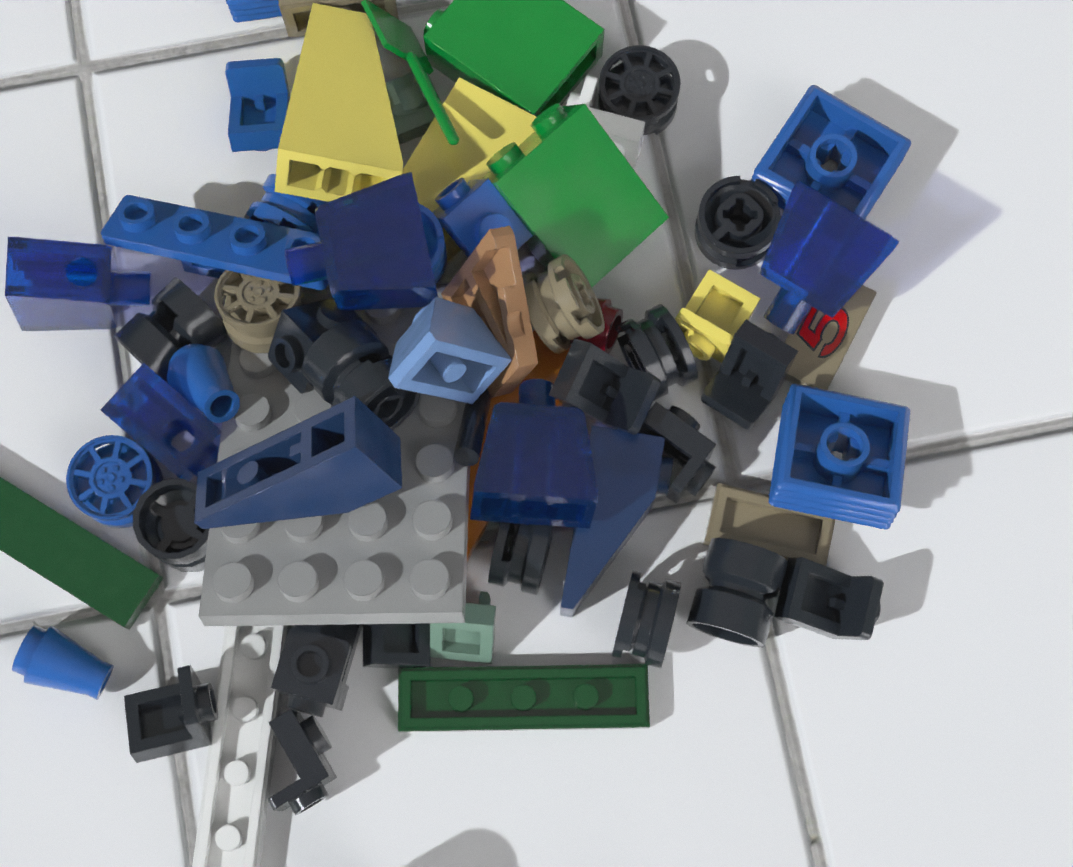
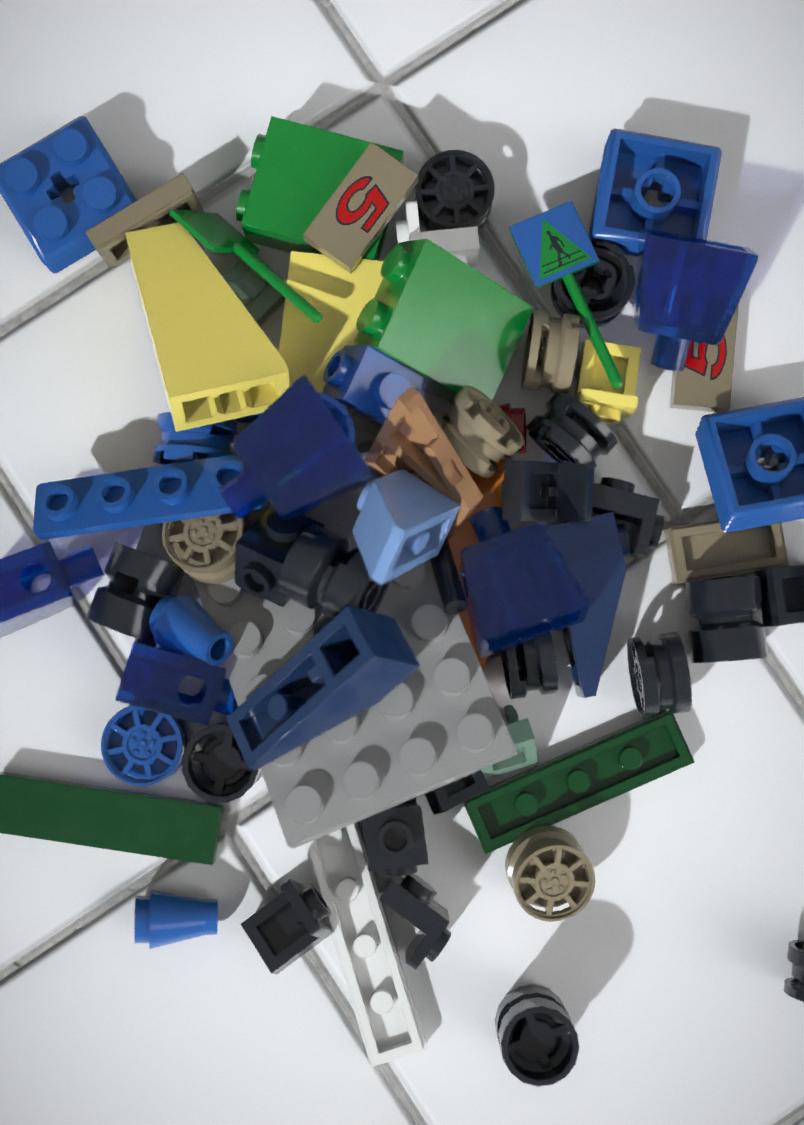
camera: 25 degrees left, 10 degrees up
(257, 103) = (116, 348): blue bracket -> none
(453, 775) = (548, 871): none -> dark tan wheel
(540, 62) = (361, 207): none -> dark tan tile
(675, 268) = (557, 351): none -> dark tan wheel
(713, 171) = (555, 248): none -> piece
(749, 375) = (661, 423): black bracket -> none

